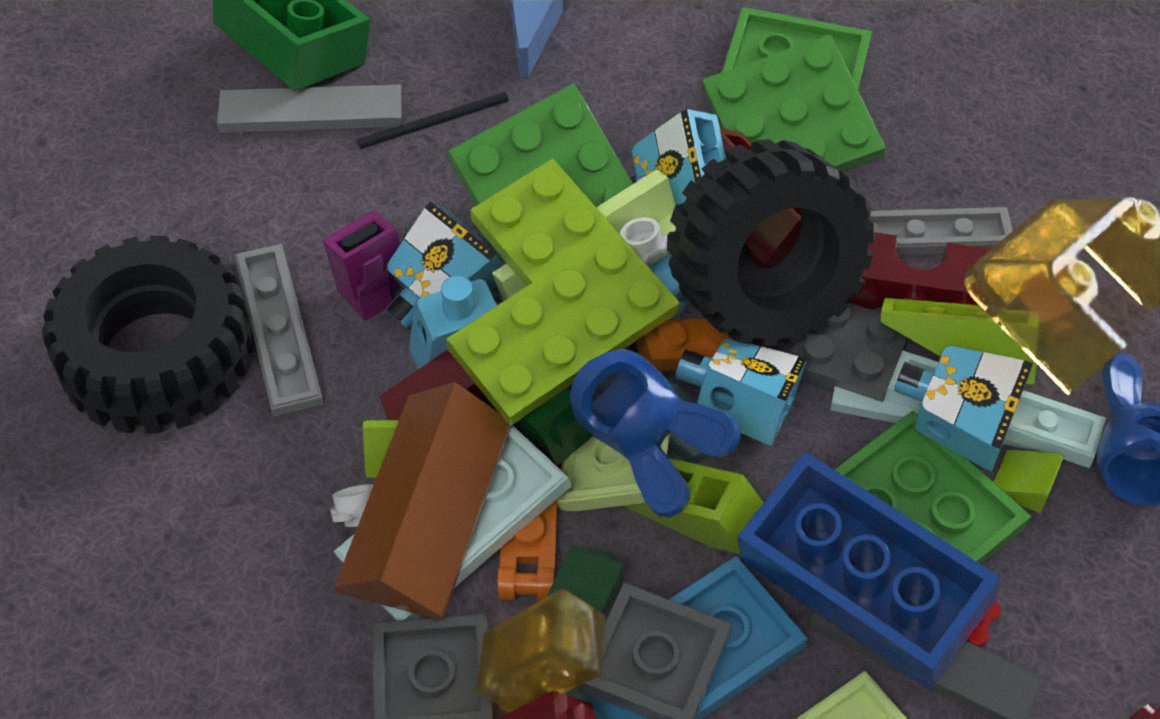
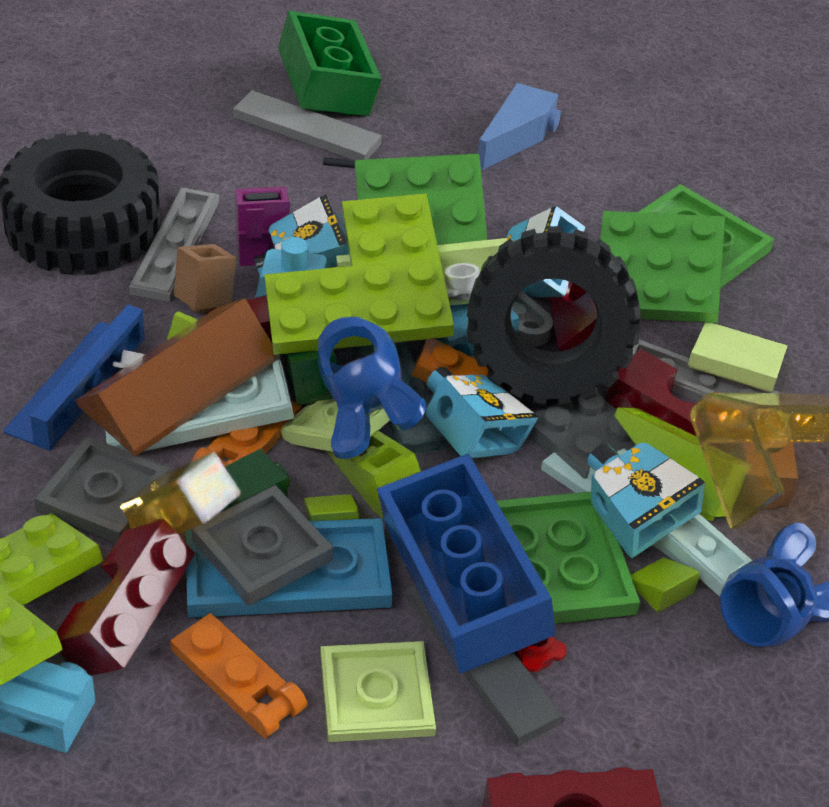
camera: 25 degrees right, 10 degrees down
(299, 558) = (54, 405): none -> blue panel
(354, 360) = (204, 277): none -> medium nougat brick
(673, 569) = (331, 508): none -> lime slope
(928, 186) = (737, 356): none -> yellowish green tile

